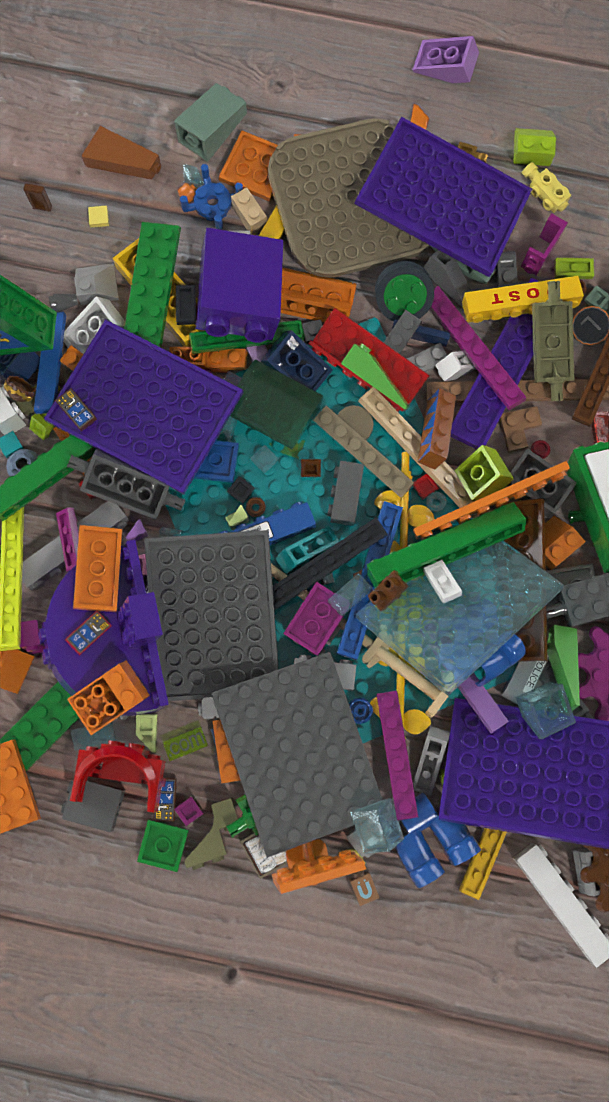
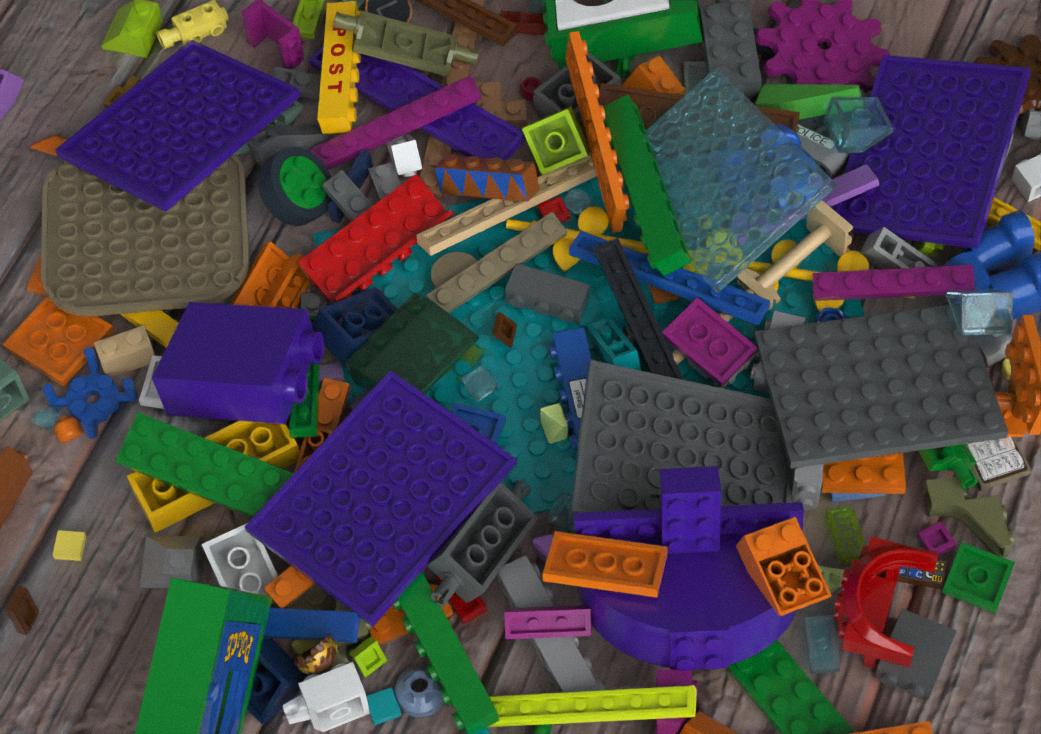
camera: 75 degrees left, 20 degrees down
(76, 409) = (370, 575): tile -> none
(88, 633) = (692, 584): tile -> none
(186, 304) = (246, 433): black tile -> none
(240, 490) = (518, 414): black plate -> none
(255, 501) = (539, 396): reddish brown plate -> none
(350, 594) = (686, 294): clear light blue plate -> none
(366, 366) = (391, 234): bright green slope -> none
(388, 591) = (693, 239): reddish brown hips -> none
(442, 581) = (690, 186): white plate -> none

